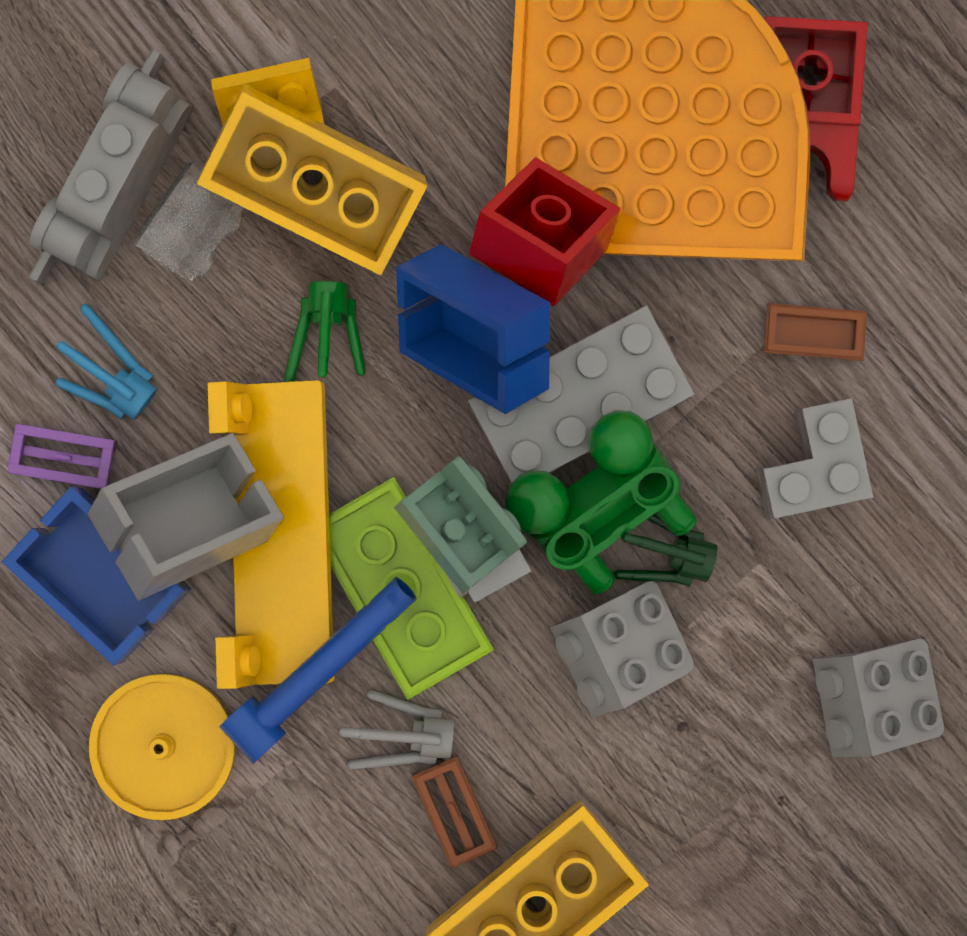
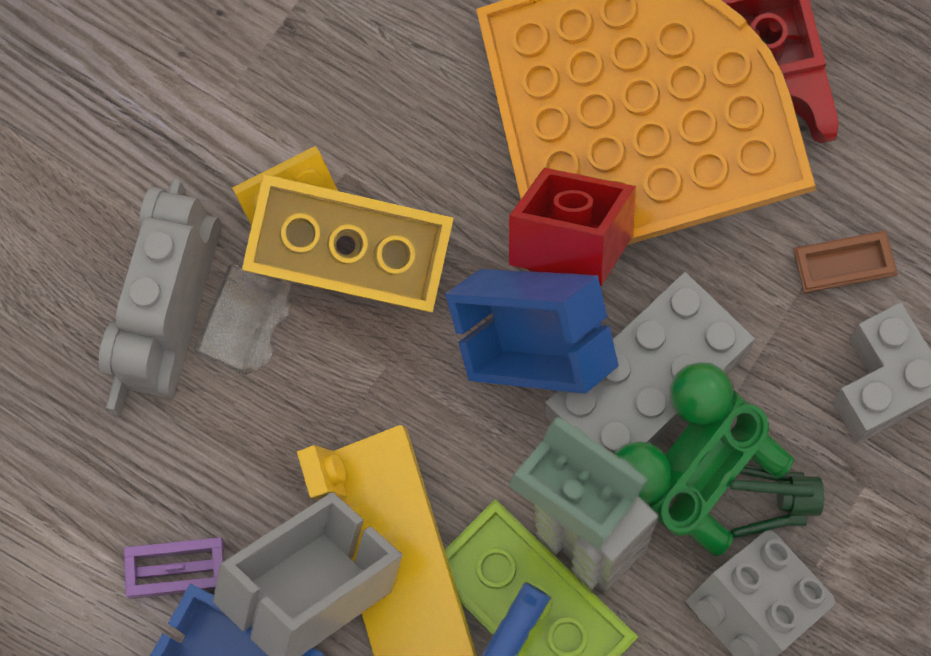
camera: 10 degrees left, 15 degrees down
(127, 391) = (223, 488): dark azure plant -> none
(327, 305) = (390, 361): green plant -> none

